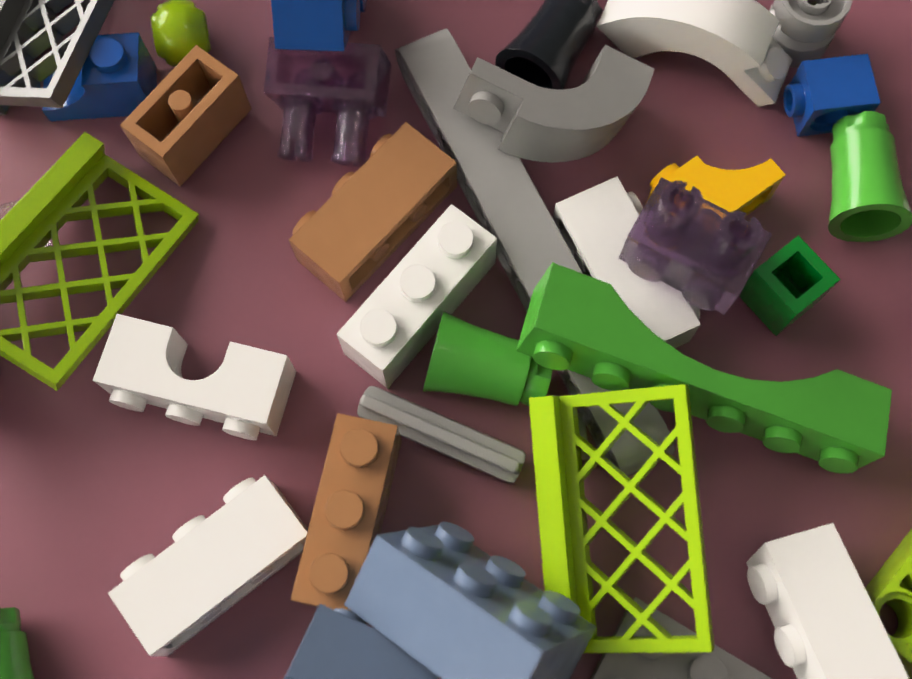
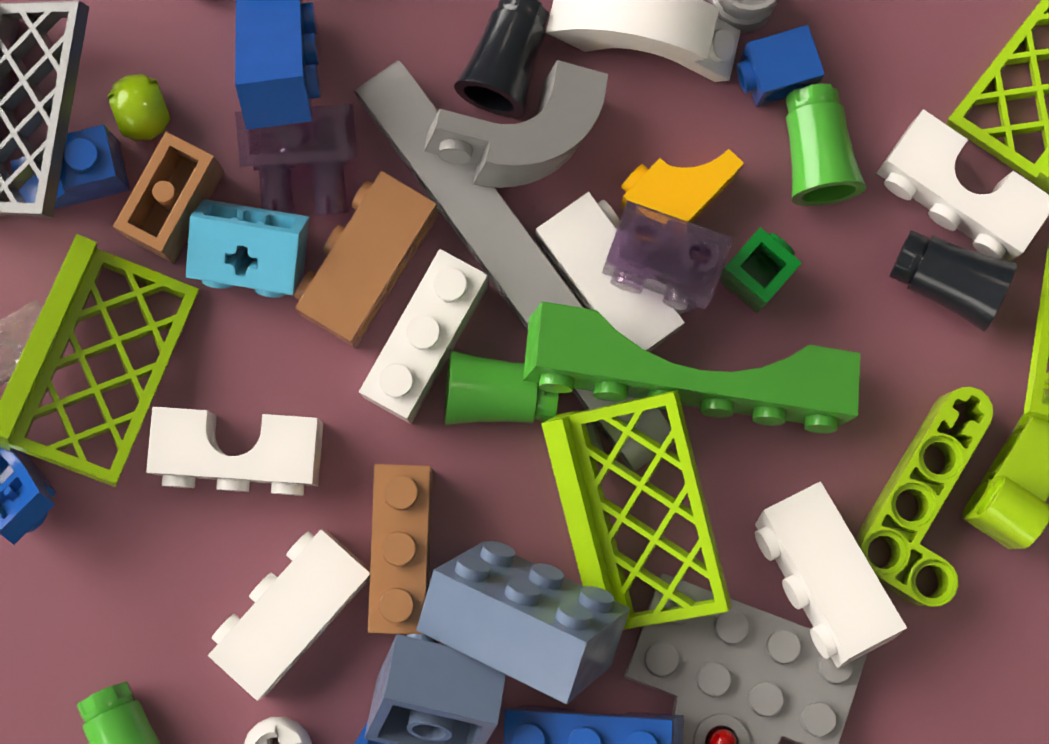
camera: 15 degrees left, 10 degrees up
(222, 171) = (273, 241): none -> medium azure brick
(443, 434) = (467, 459): light grey axle -> none

